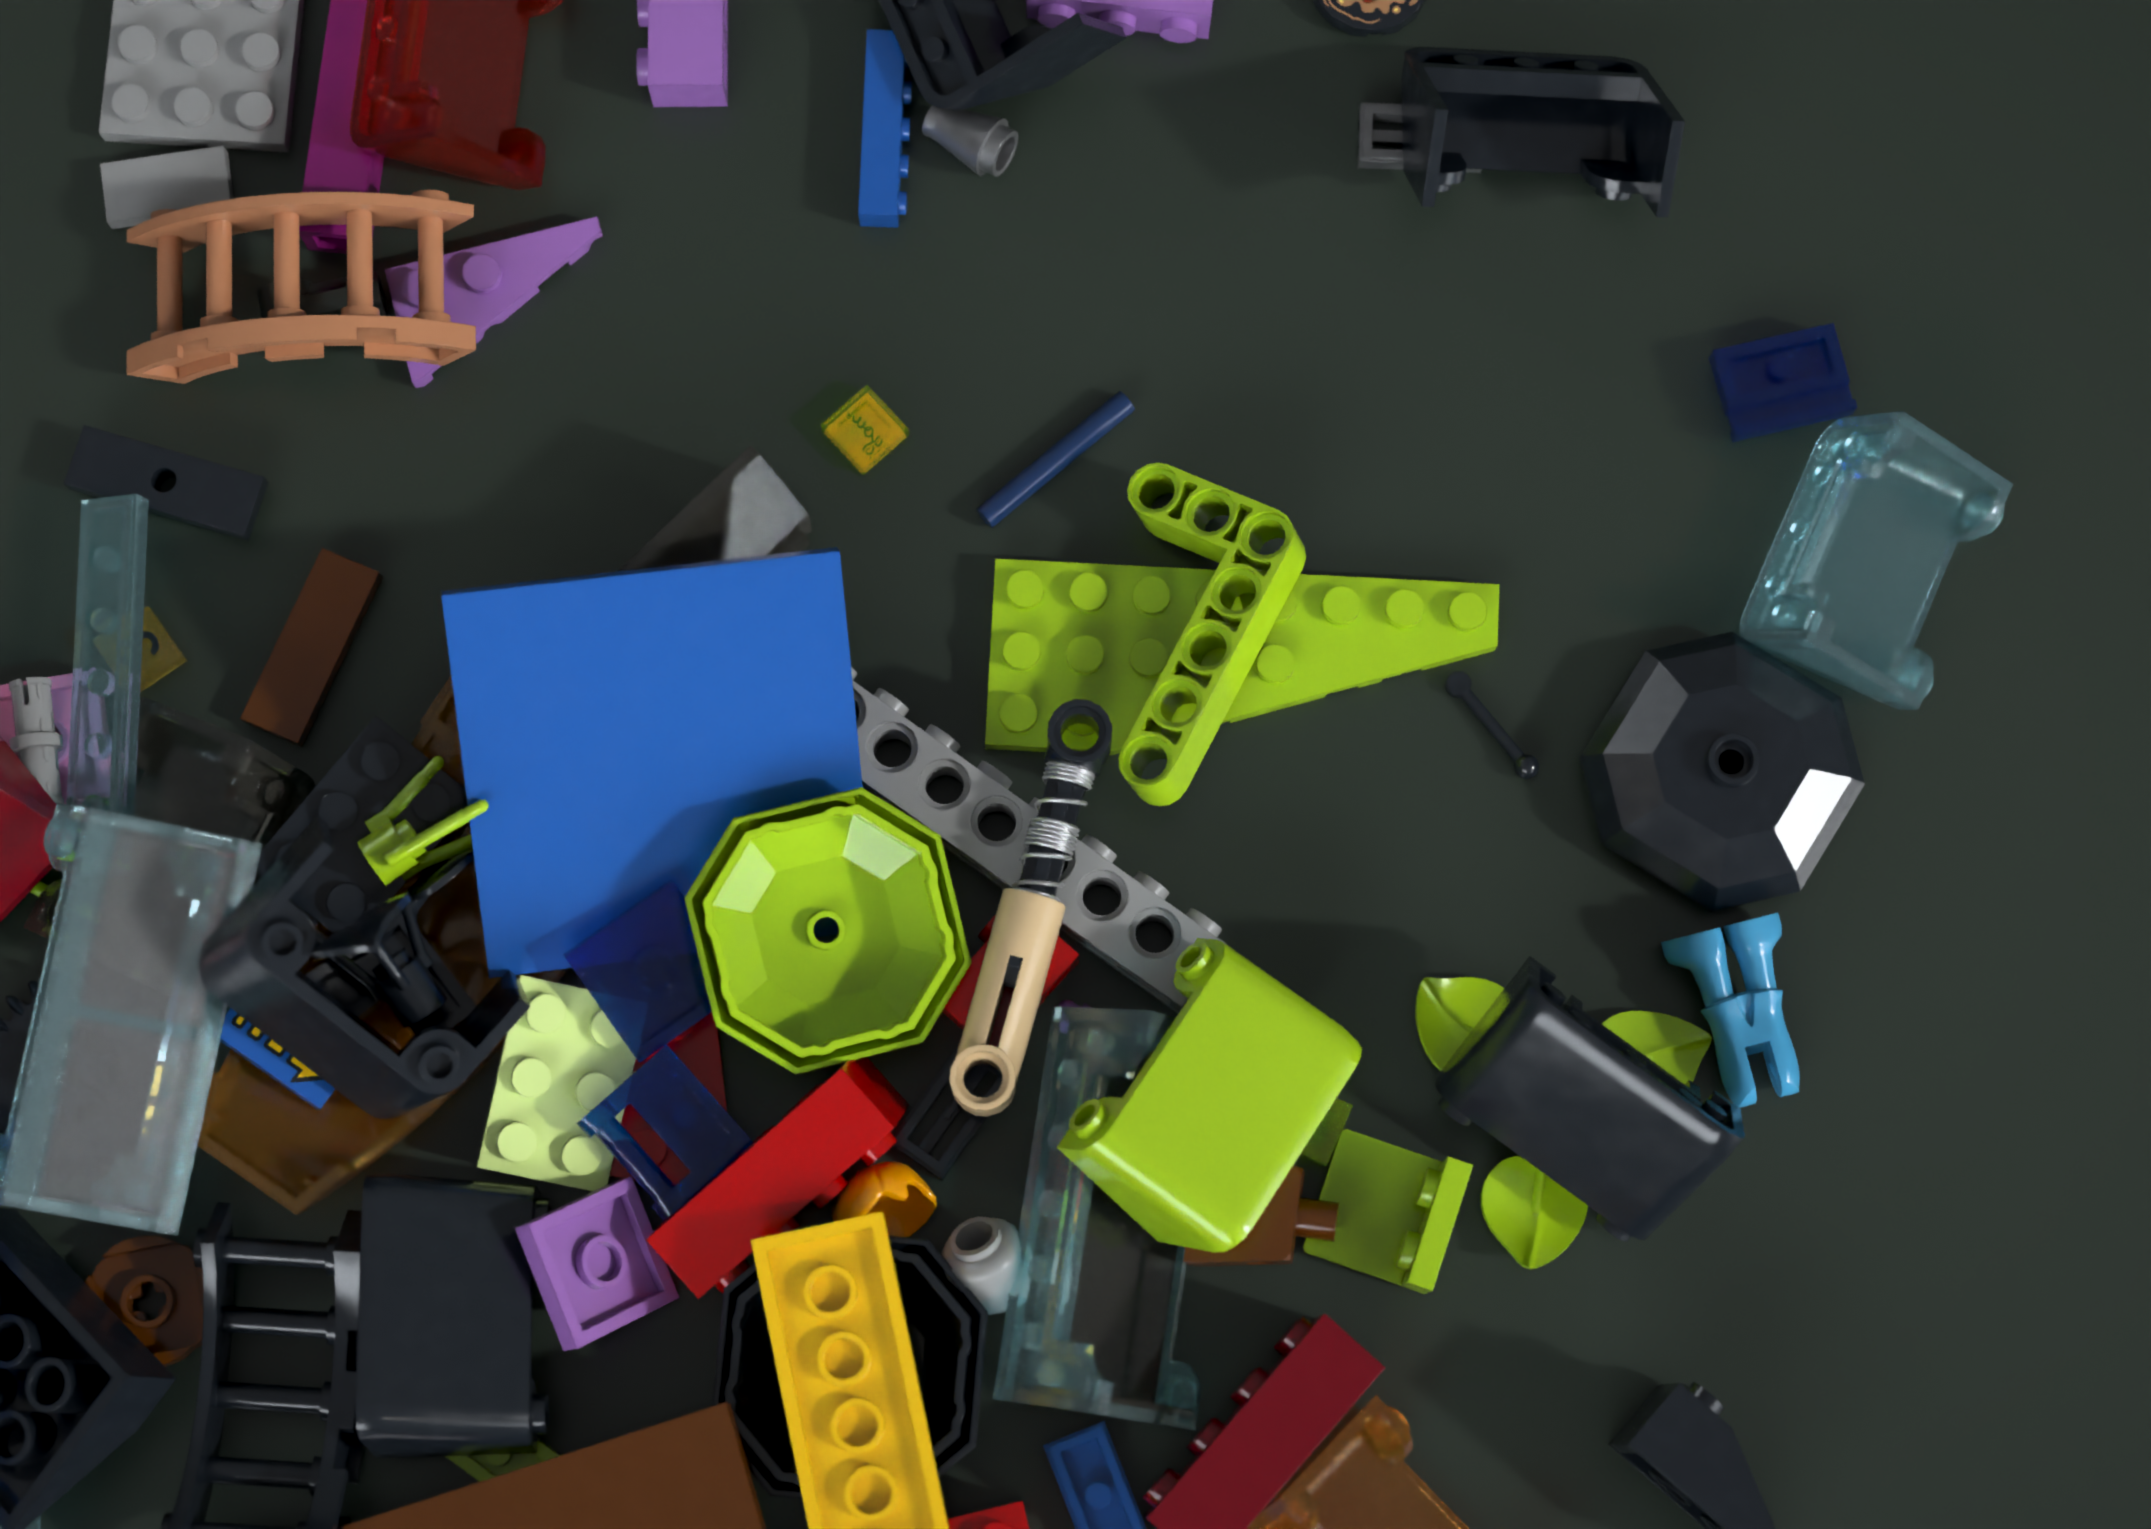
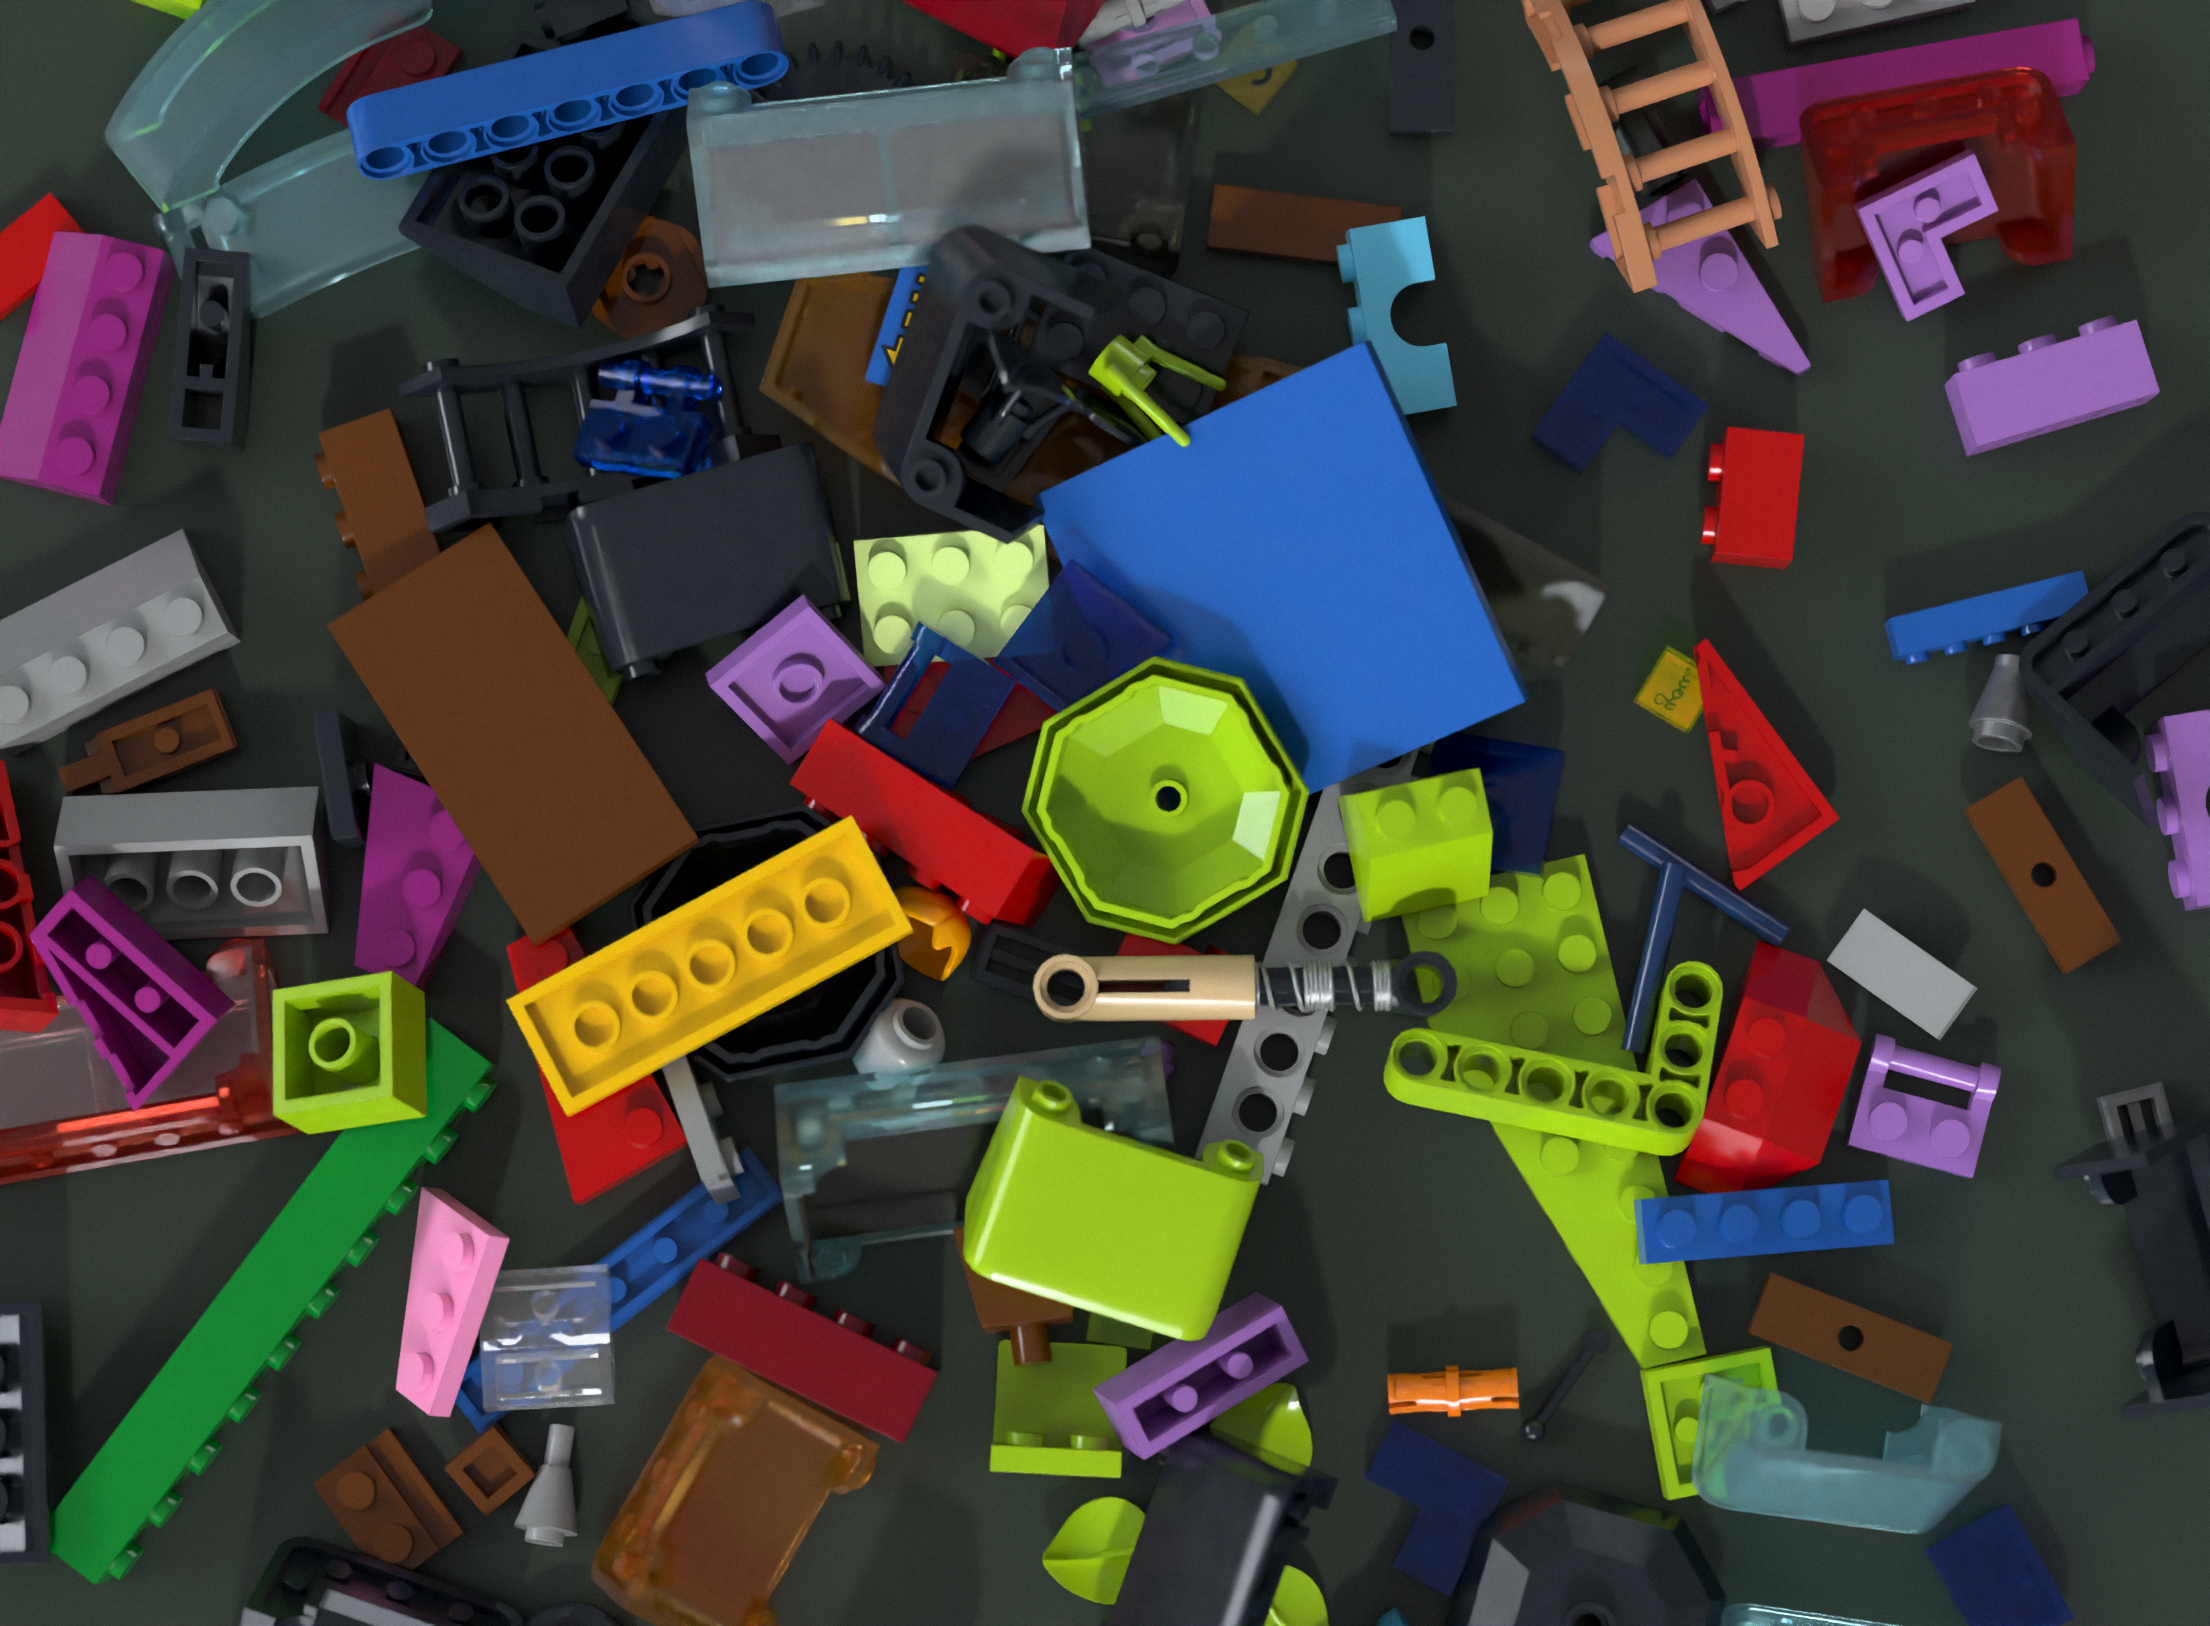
camera: 80 degrees right, 5 degrees up
(307, 1345) = (643, 438): none -> clear blue plate
(371, 581) = (1381, 264): none -> medium azure arch
(491, 85) = (1908, 227): none -> medium lavender plate
(563, 400) = (1613, 390): none -> clear blue plate
(705, 303) = (1754, 497): none -> red brick
(922, 631) = (1519, 791): none -> clear blue plate
(940, 702) = (1419, 843): none -> lime slope
(980, 377) = (1761, 787): none -> red wing
(992, 1482) = (697, 1108): none -> light grey plate
(1114, 521) = (1654, 958): none -> dark blue bar
(1175, 138) = (2066, 909): none -> reddish brown tile
(1194, 302) = (1902, 974): none -> light grey slope
(1261, 441) = (1772, 1078): none -> red wedge
(1340, 332) = (1917, 1127): none -> medium lavender plate
(1390, 495) = (1763, 1221): none -> blue plate
(1400, 1072) = (1200, 1378): none -> medium lavender brick
(1470, 829) = (1453, 1391): none -> orange pin
(1539, 422) = (1886, 1349): none -> reddish brown tile
(1541, 611) = (1674, 1406): none -> lime plate
(1574, 862) = (1451, 1497): none -> clear blue plate
(1617, 549) = (1756, 1462): none -> clear light blue windscreen

